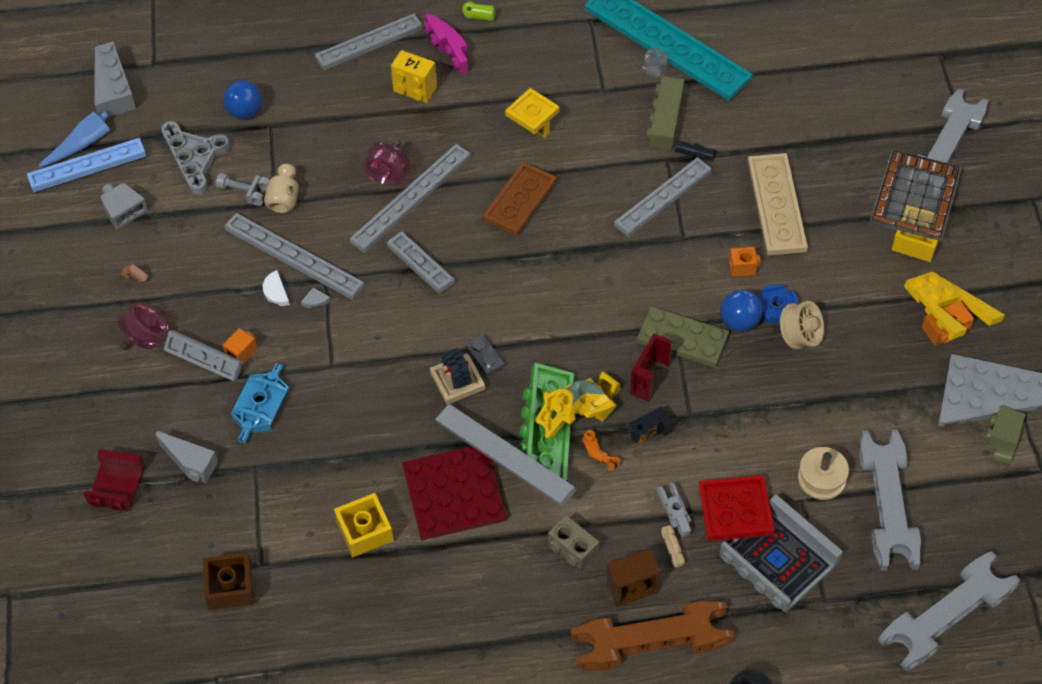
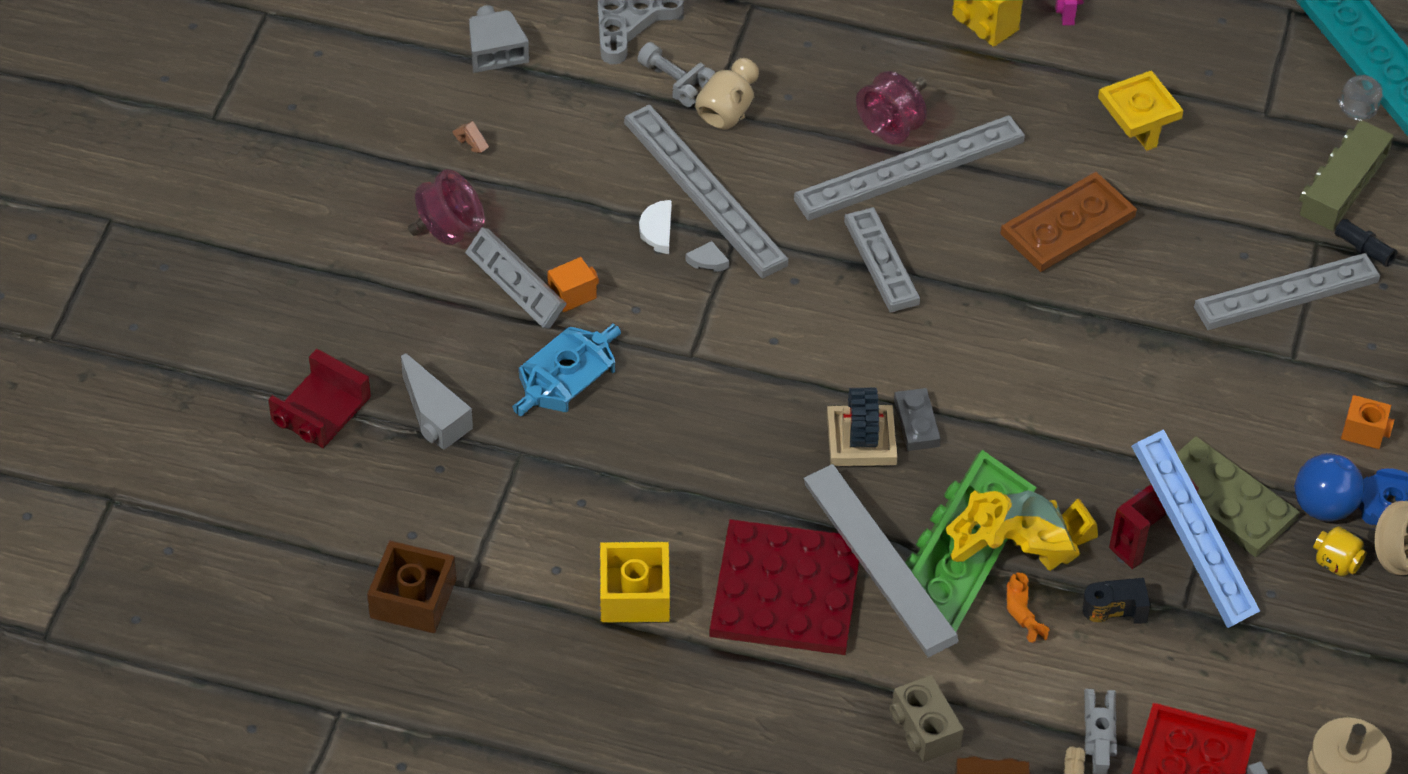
camera: 20 degrees right, 5 degrees down
(679, 365) = (1195, 528): none -> light blue plate
(762, 347) = (1339, 551): none -> yellow head

